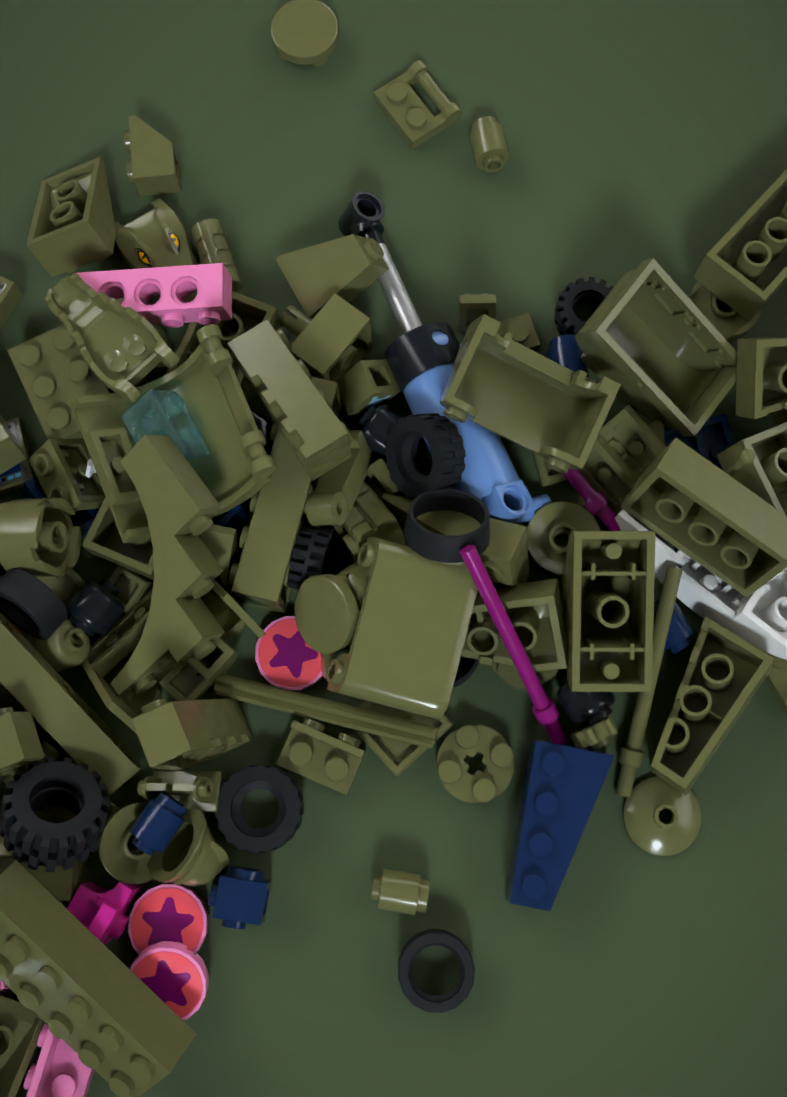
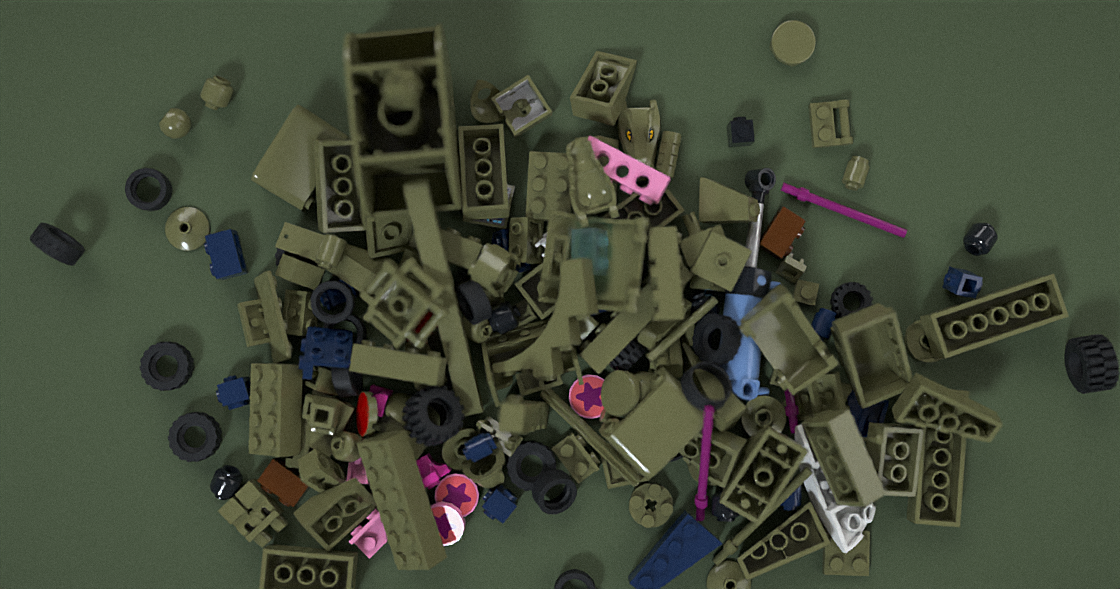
camera: 25 degrees right, 10 degrees up
(153, 160) = (665, 76): olive slope -> none
(299, 175) = (740, 132): none -> black brick
(337, 838) = (547, 481): none -> black tyre
(364, 340) = (720, 261): none -> olive plate
(365, 471) = (681, 329): none -> olive bar
(400, 892) = (578, 546): olive brick -> none
(434, 273) = (781, 233): none -> reddish brown brick
(435, 210) = (804, 195): none -> magenta bar
(594, 735) = (718, 527): olive plate -> none
(707, 136) = (980, 239): none -> black head
(721, 200) = (962, 282): none -> dark blue brick

